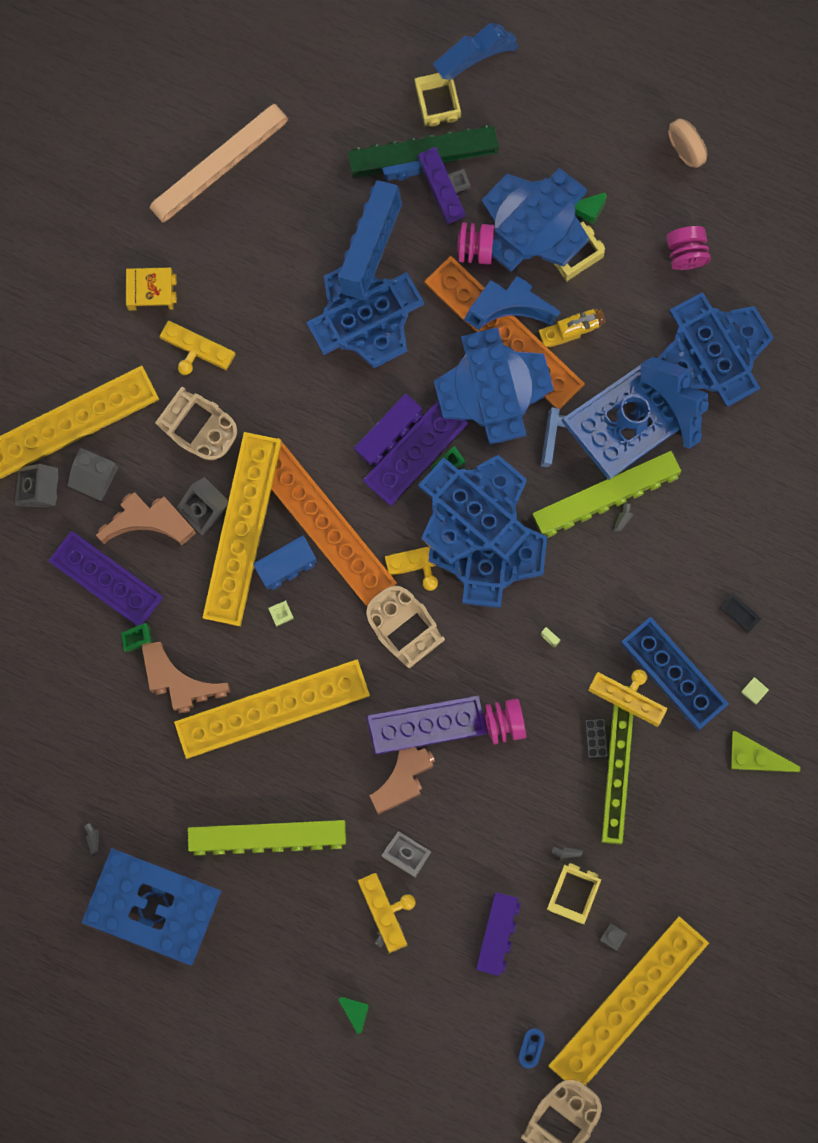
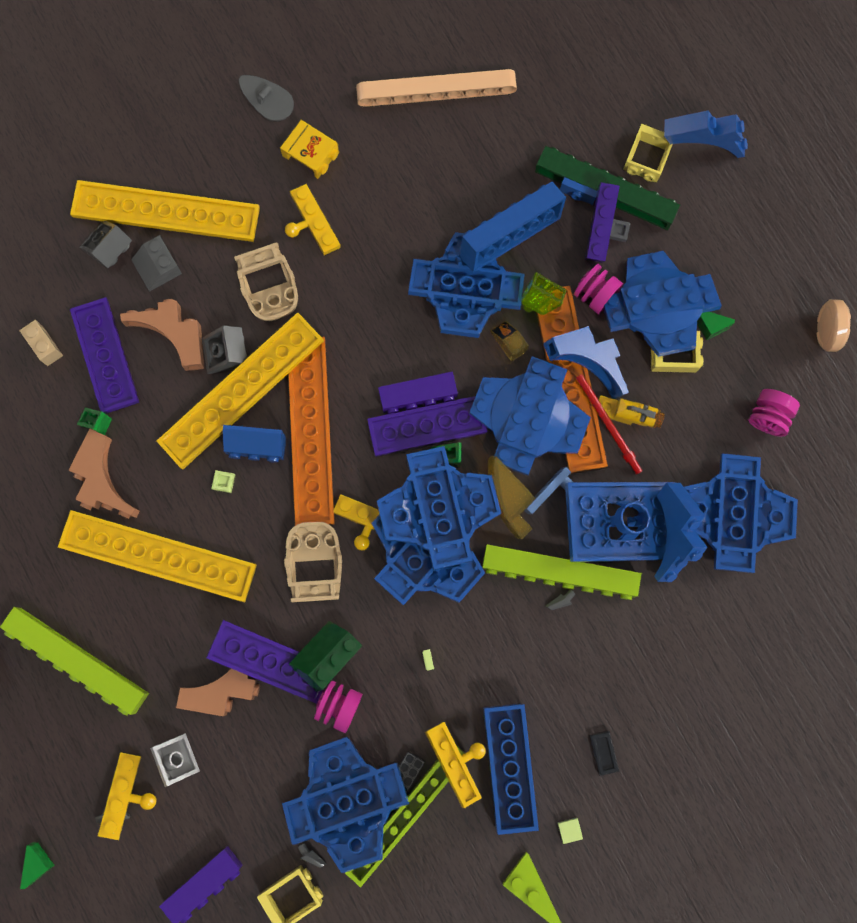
camera: 25 degrees right, 0 degrees up
(46, 605) = (41, 343): none -> tan brick
(78, 269) = (267, 97): none -> dark grey shield
(433, 335) = (510, 340): none -> clear yellow slope
(435, 280) = (542, 295): none -> clear neon green torso
(467, 689) = (325, 655): none -> dark green slope
(527, 461) = (512, 497): none -> clear yellow slope
(565, 790) = (345, 805): none -> blue plate
(595, 363) = (628, 456): none -> red bar

